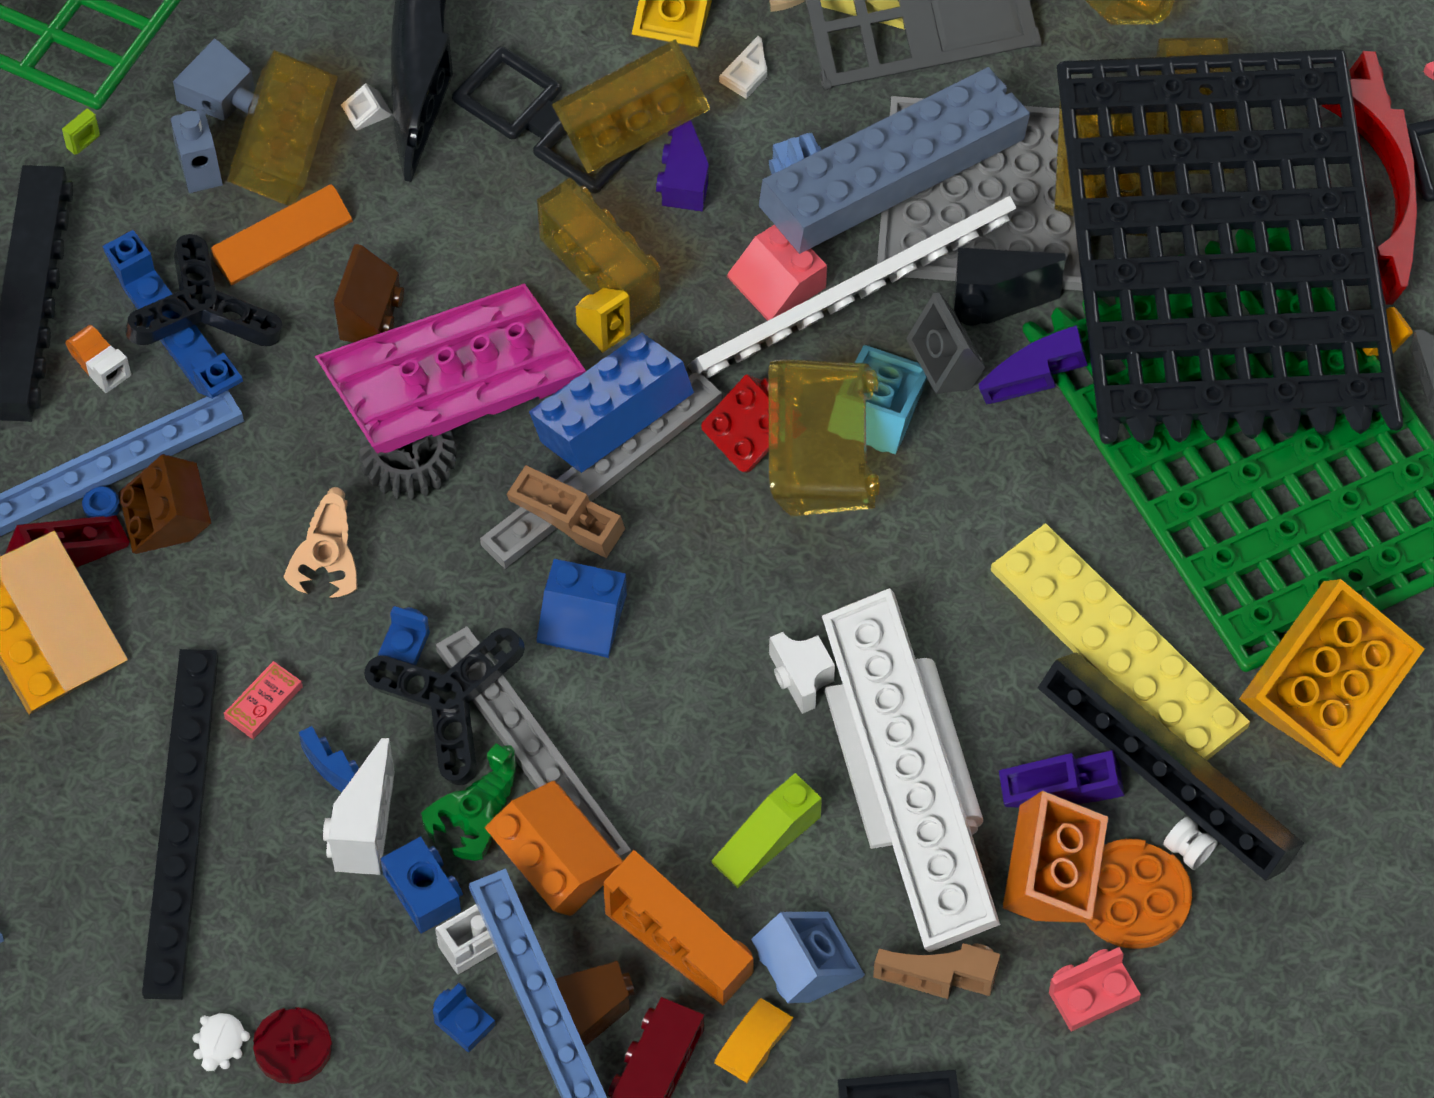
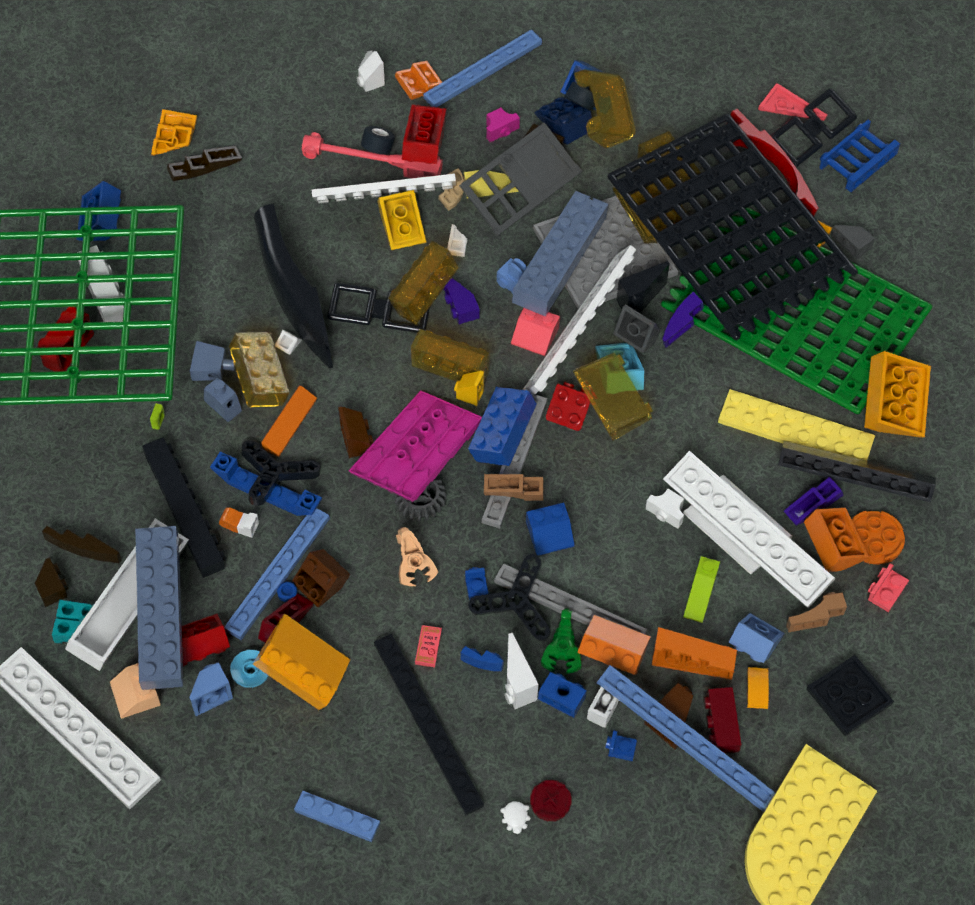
camera: 30 degrees left, 0 degrees up
(1190, 843) = (886, 501): white wheel -> none

